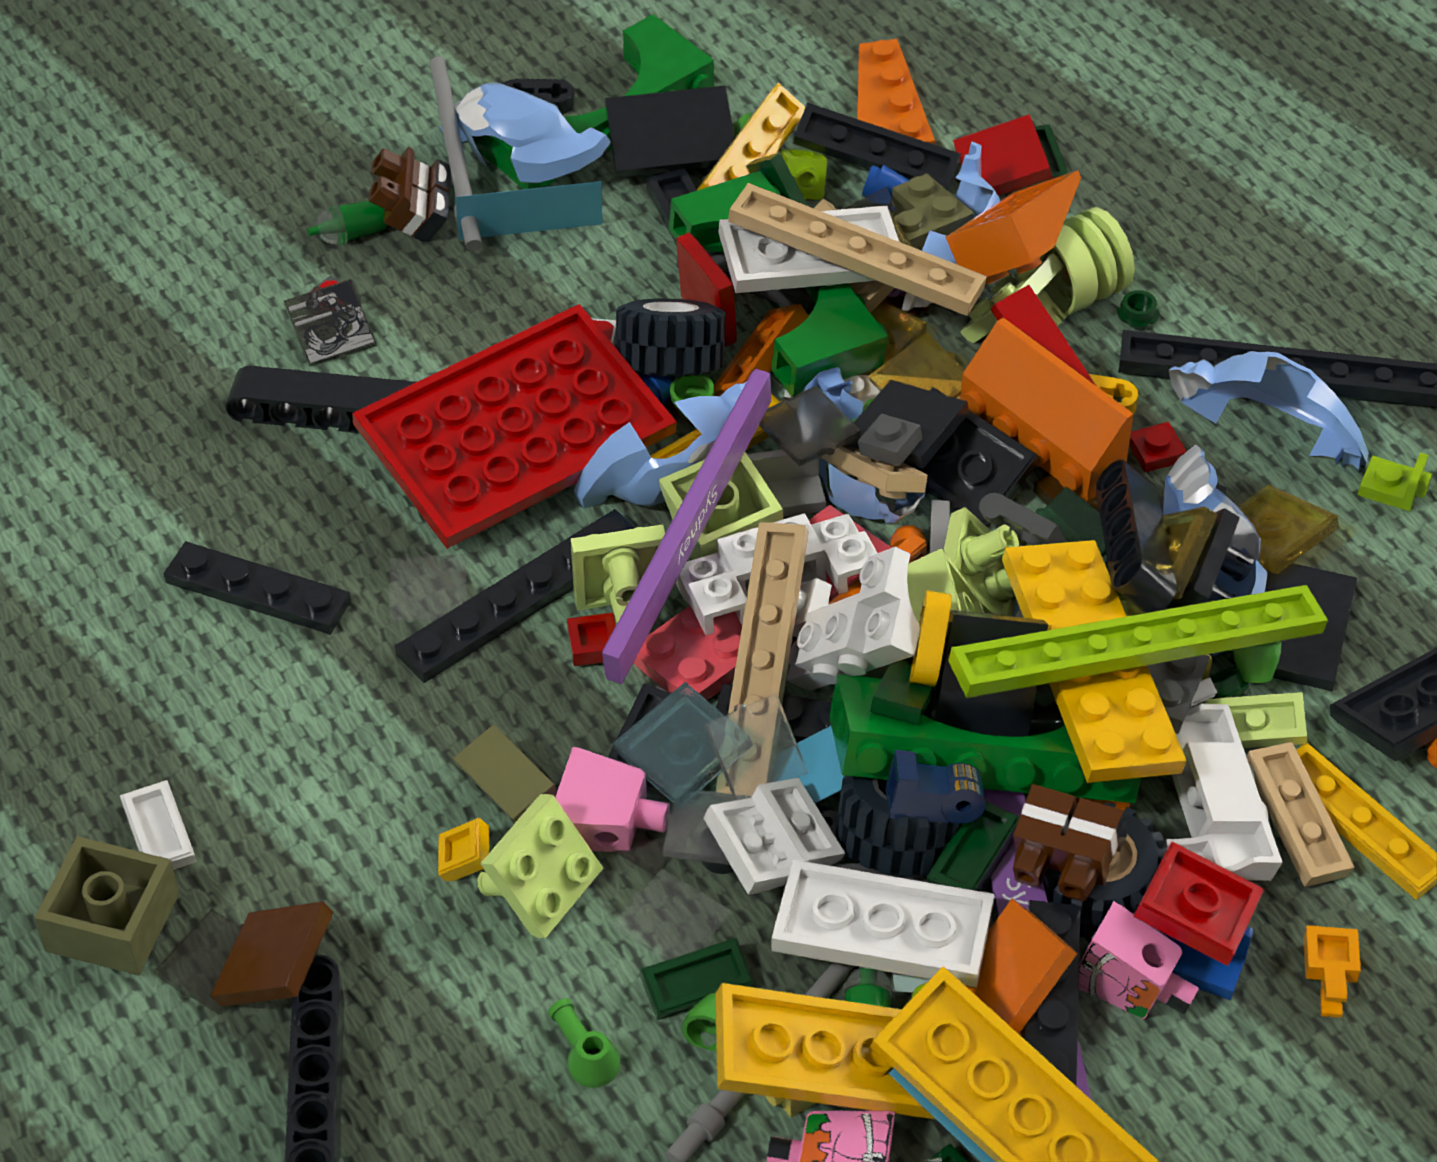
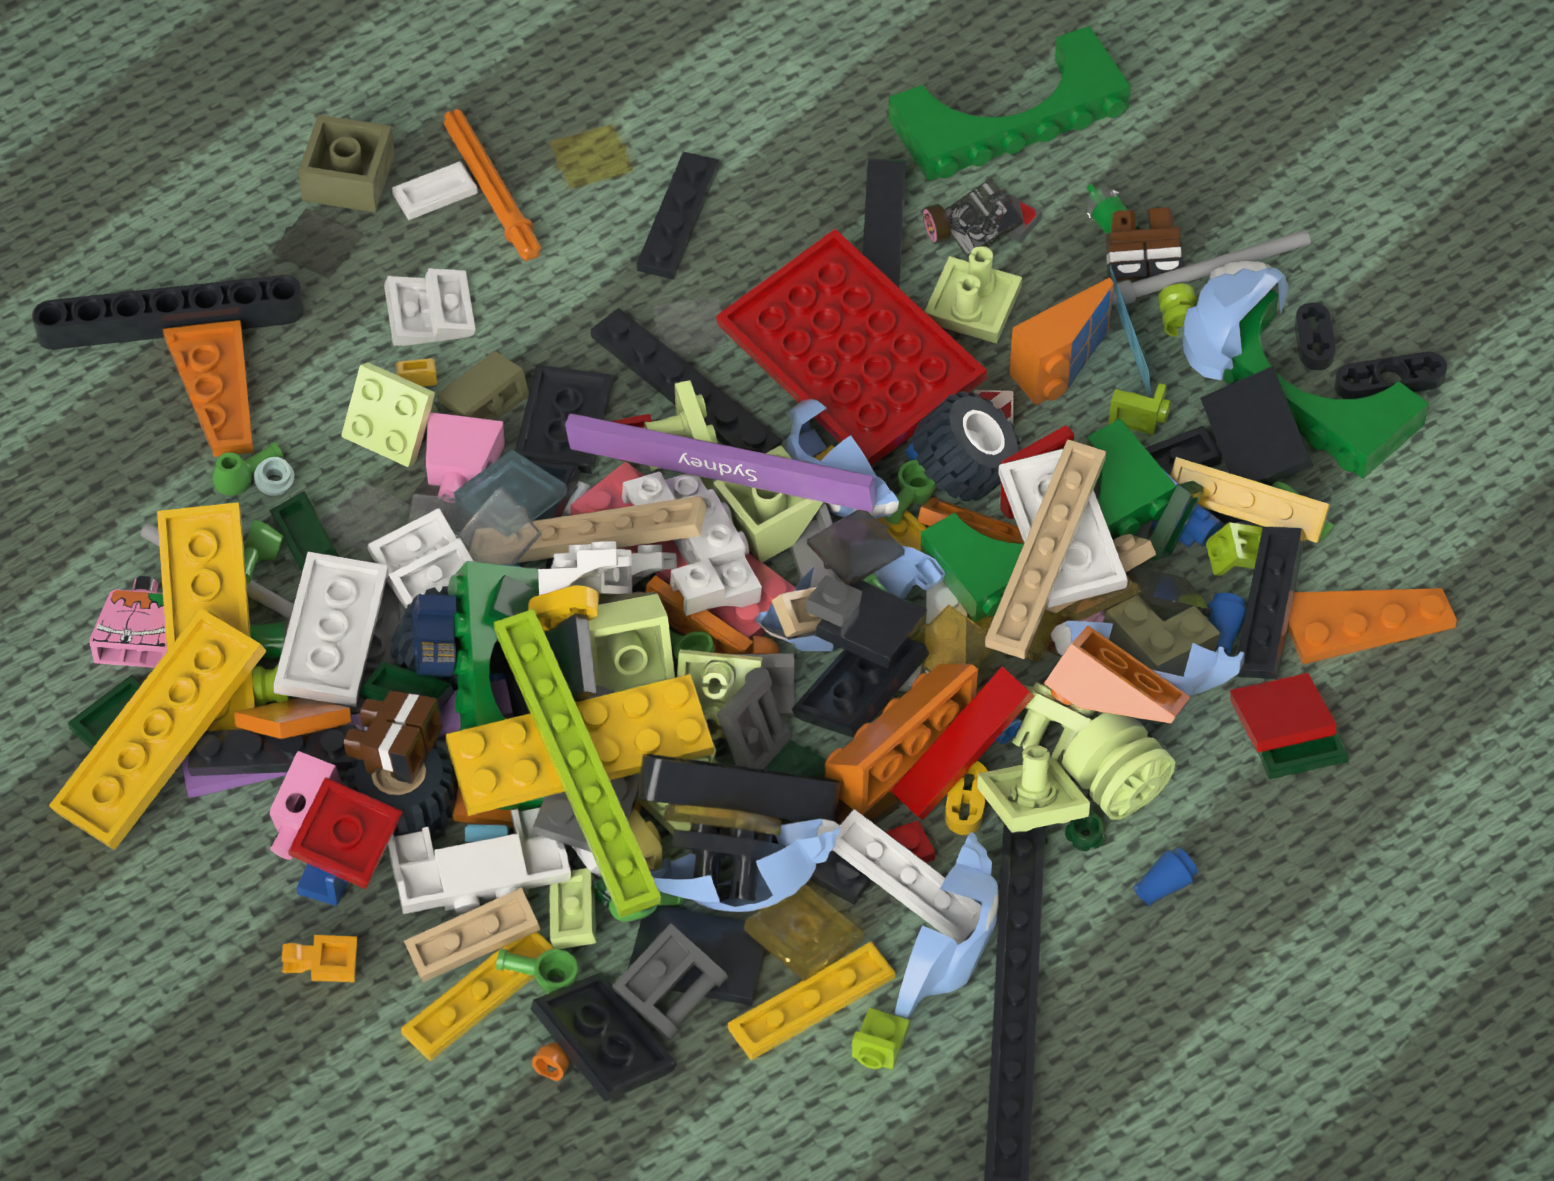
camera: 85 degrees right, 5 degrees up
(140, 669) = (591, 156): none -> clear yellow piece
(165, 764) = (517, 228): none -> orange axle
(211, 337) = (951, 140): none -> green arch
(272, 954) = (302, 262): reddish brown tile -> none
(331, 356) = (936, 223): none -> dark brown tile
(352, 839) = (429, 307): none -> white slope
(434, 1073) = (215, 379): none -> orange wing
(439, 332) = (974, 296): none -> yellowish green plate
(490, 180) = (1174, 304): none -> lime wheel
(536, 255) = (1059, 341): none -> orange slope
(550, 708) = (551, 399): none -> black tile
(601, 41) = (1400, 365): none -> black beam
(604, 997) = (270, 467): none -> light aqua plate
(618, 221) = (1138, 411): none -> lime bracket
(1114, 326) = (1033, 792): none -> yellowish green plate
(1158, 797) = (480, 832): none -> medium azure tile
(1190, 254) = (1168, 874): none -> blue cone
(1215, 430) = (906, 877): none -> white plate
(1341, 742) = (547, 965): none -> bright green bar
(1355, 540) = (811, 1000): none -> yellow tile
(1355, 640) = (659, 971): none -> dark grey plate

